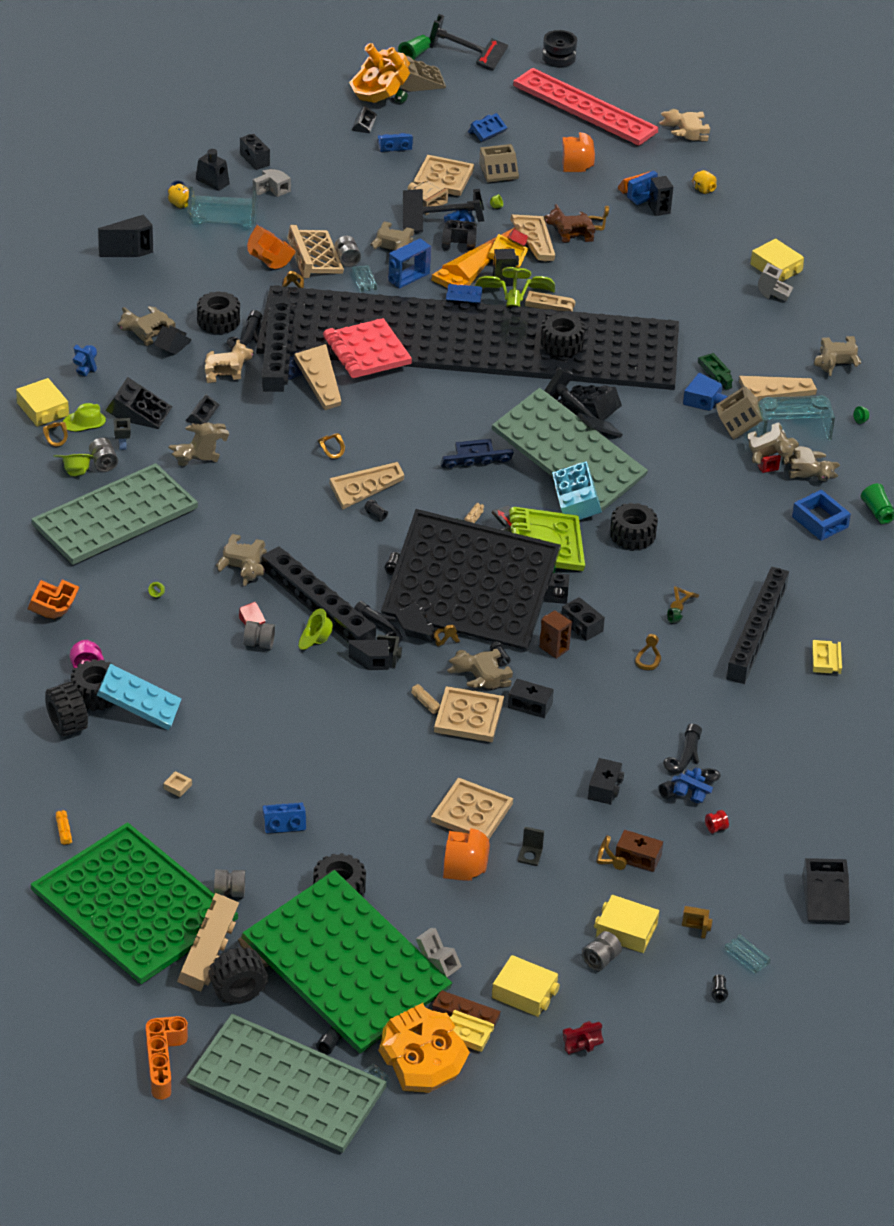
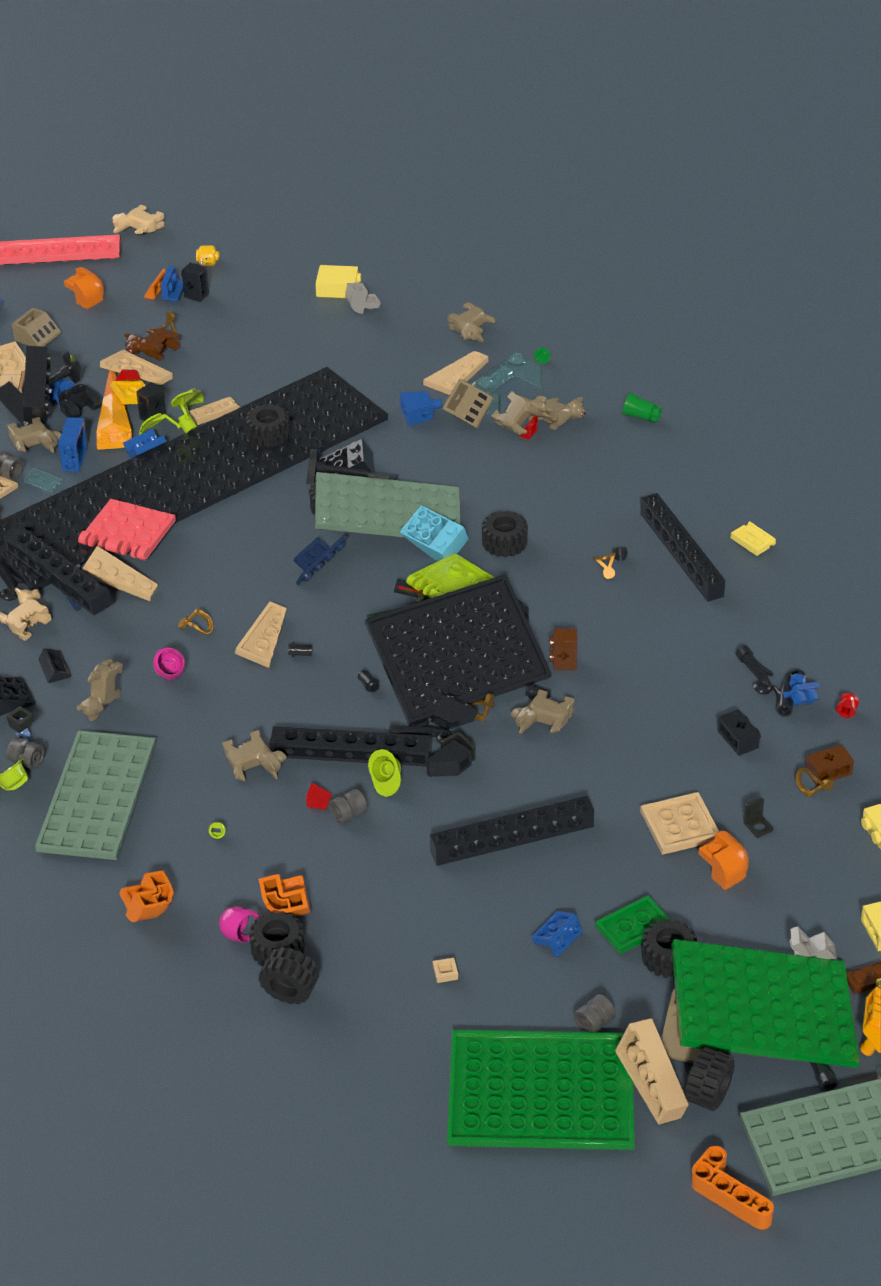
camera: 40 degrees left, 0 degrees up
(63, 827) = (404, 1075): light orange axle -> none
(136, 659) = (285, 895): none -> orange brick
(139, 697) = (328, 923): medium azure plate -> none
(269, 458) = (169, 663): none -> dark pink helmet
(335, 842) = (627, 925): none -> green plate
(346, 729) = (511, 830): none -> black brick
(425, 698) = (532, 765): tan axle -> none
(431, 201) = (36, 383): none -> black brick
(469, 714) = (579, 754): tan plate -> none
(474, 513) = (377, 603): tan axle -> none
(530, 698) = (606, 710): black brick -> none
(584, 618) = (559, 620): black brick -> none
(651, 641) = (634, 607): pearl gold piece -> none
(674, 615) = (612, 583): dark green hinge -> none
(706, 598) = (620, 552): none -> black hinge
(716, 369) = (400, 384): dark green hinge -> none
(821, 529) = (613, 451): blue window -> none

